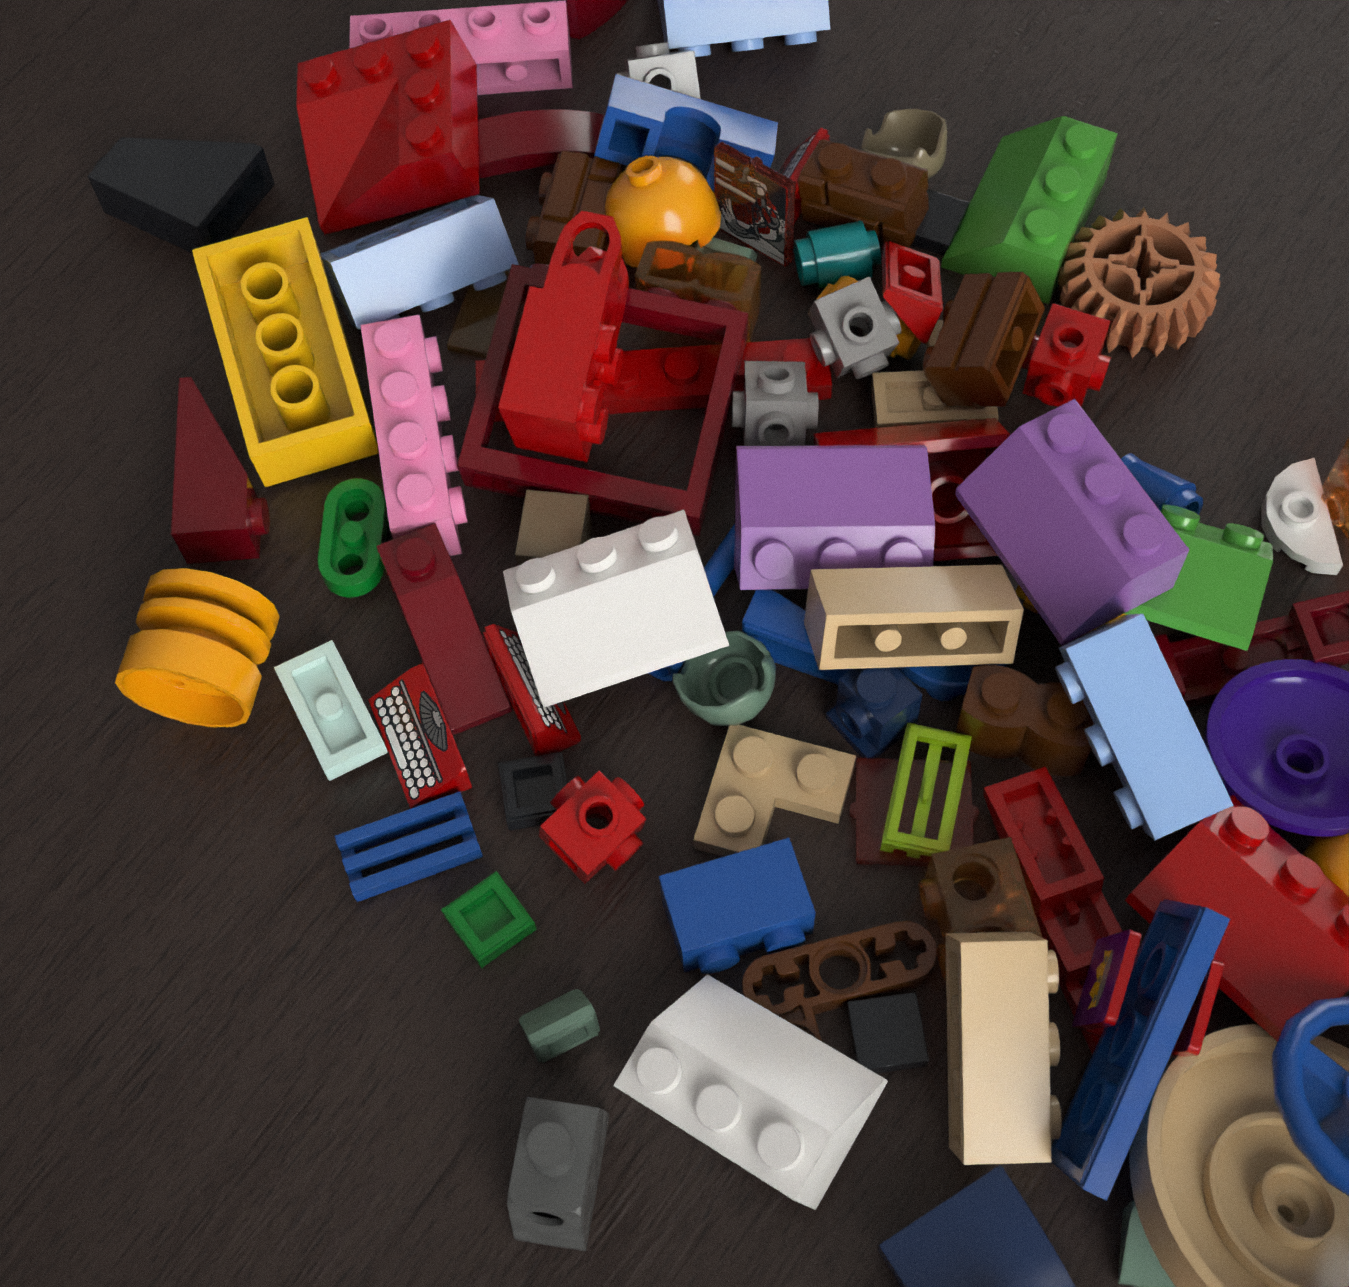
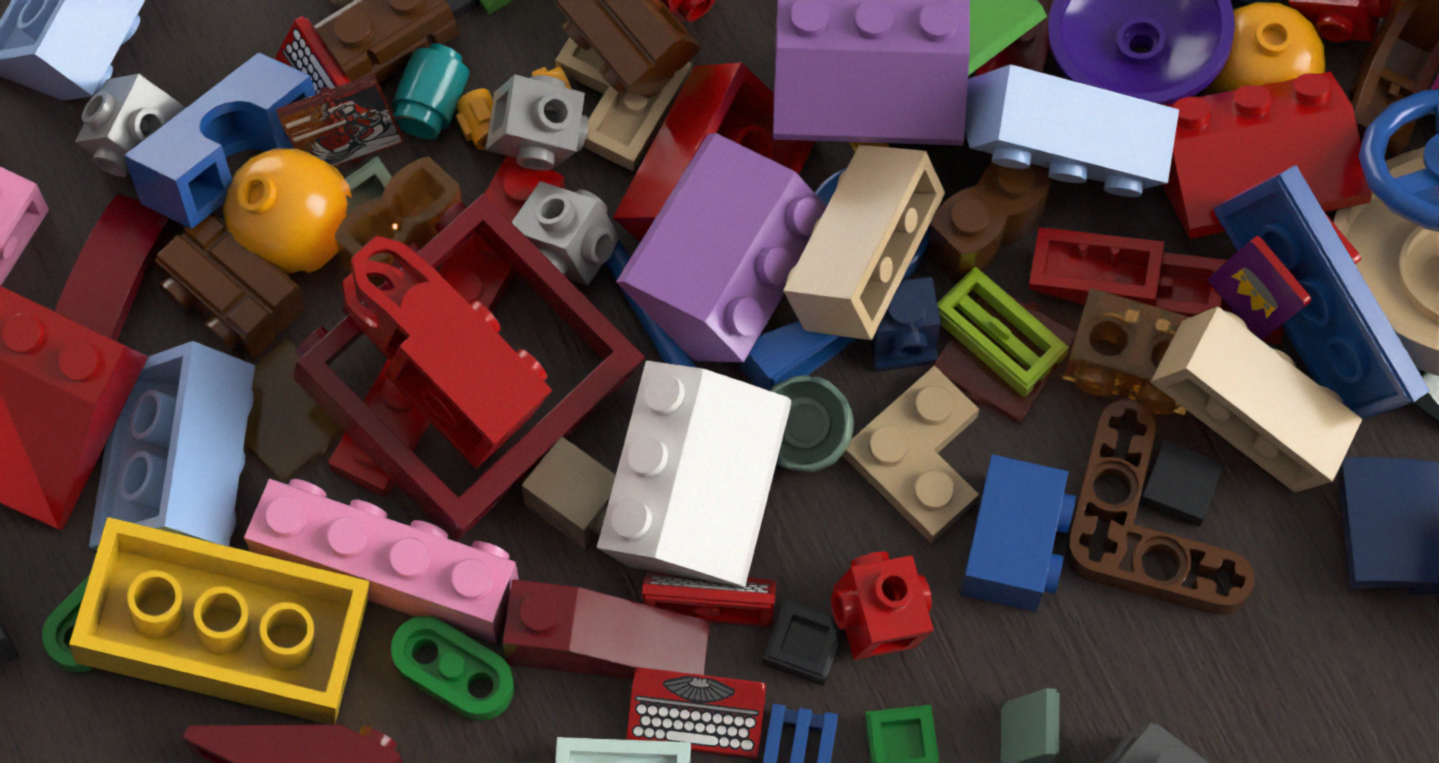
camera: 65 degrees left, 5 degrees up
(753, 1088) = (1185, 601): white slope -> none
(912, 287) = (526, 47): red slope -> none

